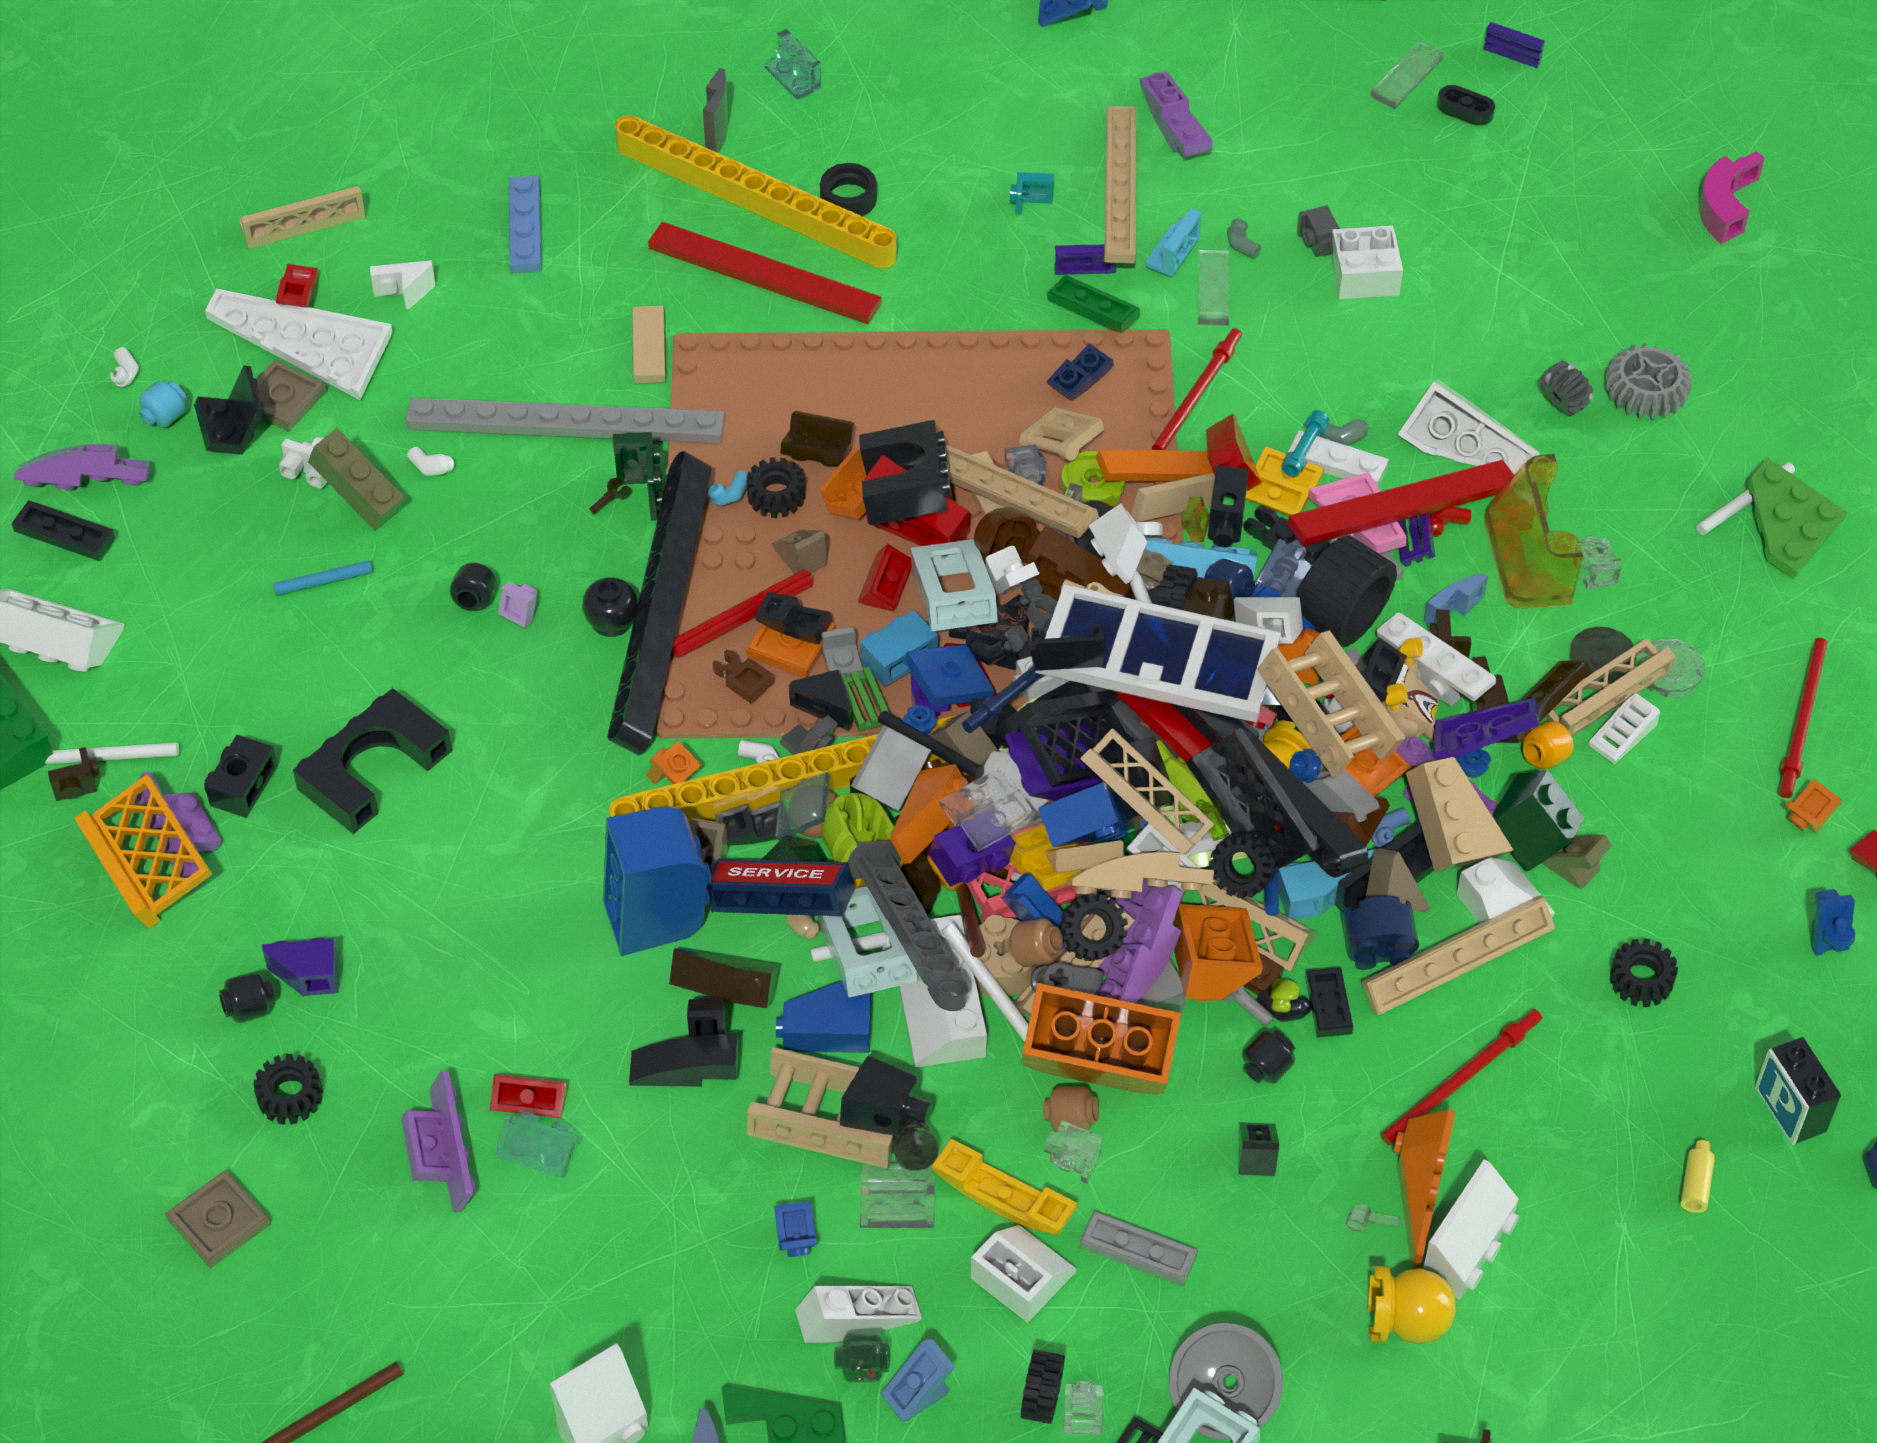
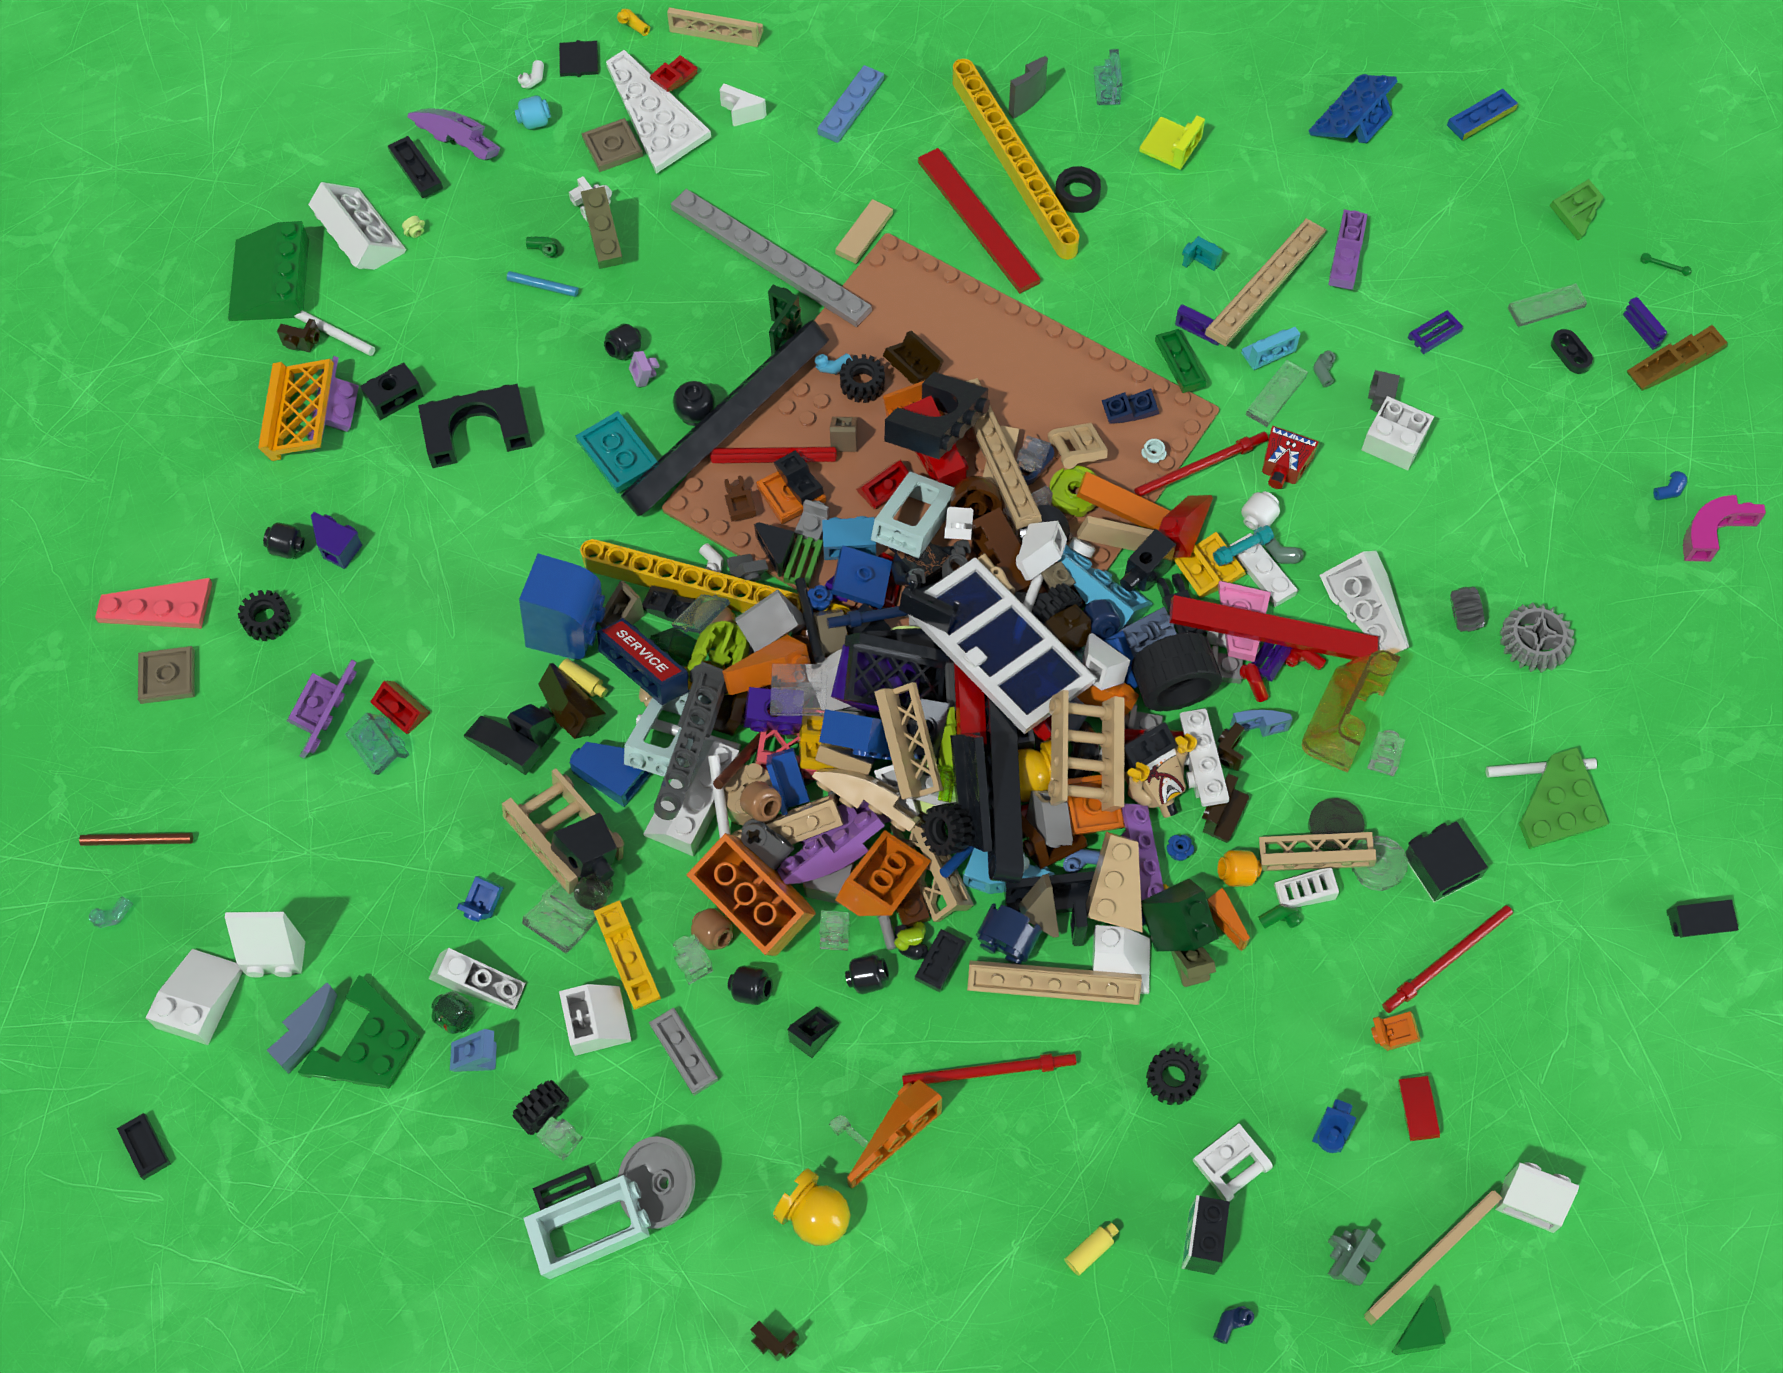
camera: 35 degrees right, 10 degrees up
(116, 594) = (413, 227): none -> yellowish green plate
(147, 1150) = (163, 605): none -> coral wing
(163, 325) = (578, 58): none -> black piece
(195, 255) = (627, 17): none -> yellow arm
(231, 422) = (562, 143): black bracket -> none
(290, 535) = (544, 244): none -> green arm
(432, 464) = (665, 242): white arm -> none
(560, 702) = (616, 451): none -> teal plate
(611, 493) = (761, 322): dark brown hand -> none
(675, 764) = (647, 536): orange bracket -> none
(720, 946) = (583, 679): none -> light yellow cylinder
(909, 97) = (1172, 141): none -> neon yellow bracket
(1110, 915) = (821, 809): black tyre -> none
(1140, 401) = (1154, 445): none -> light aqua plate
(1157, 1139) = (750, 985): none -> black head
(1195, 519) = (1120, 557): clear yellow plate -> none
(1200, 1035) = (834, 930): none -> clear brick
(1274, 339) = (1287, 456): none -> red torso
(1293, 402) = (1260, 510): none -> white head
(1306, 765) = (1038, 785): blue plate -> none
(1315, 167) = (1426, 347): none -> dark purple tile
(1420, 563) = (1255, 681): none -> red arm
(1442, 880) = (1078, 922): none -> black tile
(1472, 1230) = (898, 1186): white slope -> none
(1480, 728) = (1190, 829): dark purple wing -> none
(1553, 690) = (1257, 833): dark brown tile -> none
(1568, 62) = (1677, 358): none -> pearl gold slope
(1586, 798) = (1227, 919): none -> orange slope
(1618, 766) = (1281, 913): none -> green arm
(1660, 183) = (1674, 488): none -> blue arm
(1731, 628) = (1445, 860): none -> black piece
(1751, 1012) = (1225, 1155): none -> white plate

